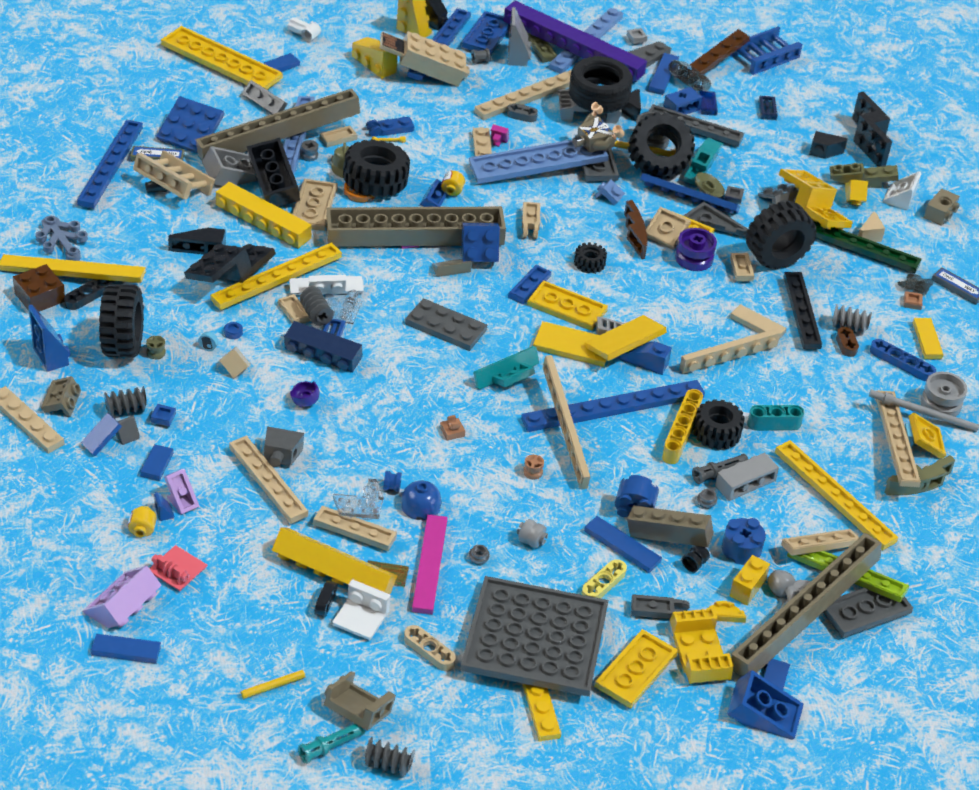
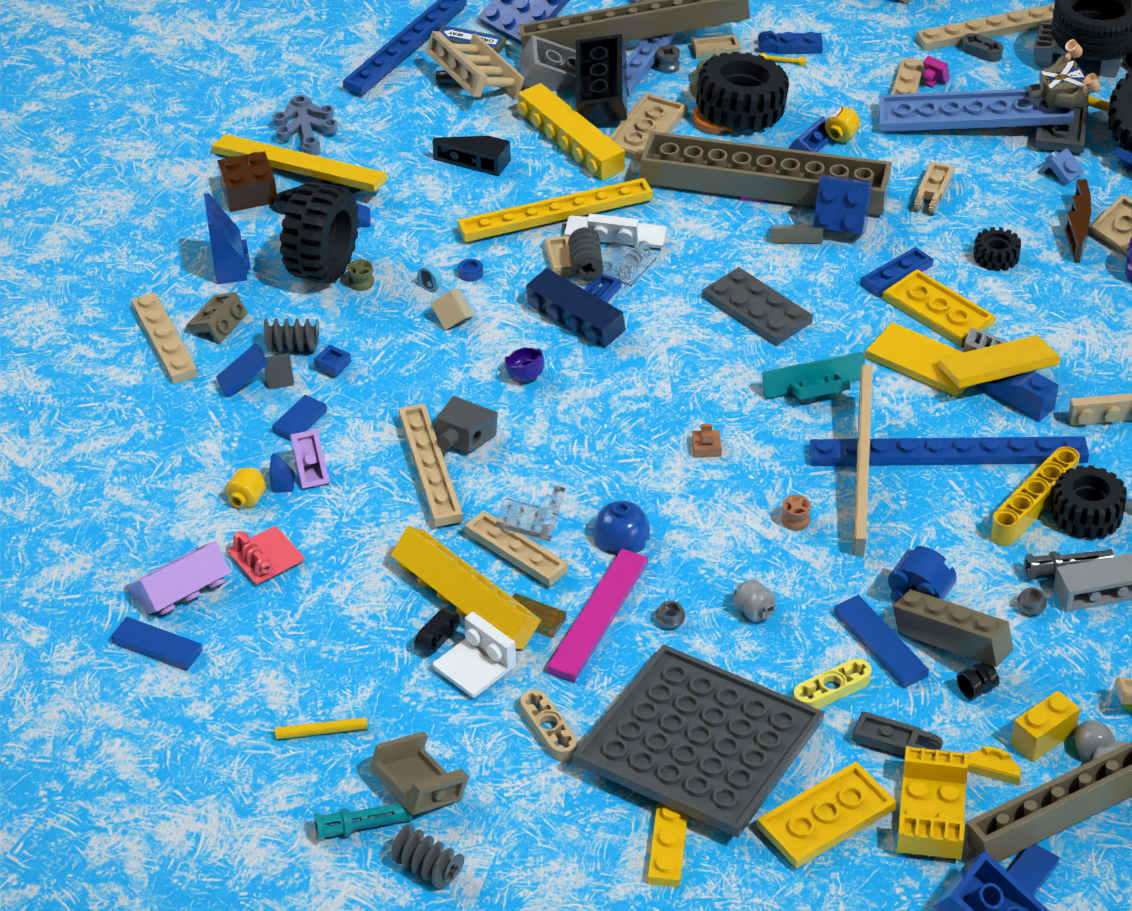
camera: 25 degrees right, 0 degrees up
(229, 263) = (495, 183): black bracket -> none
(392, 481) = (592, 496): blue wheel -> none
(743, 539) = (1059, 665): blue brick -> none

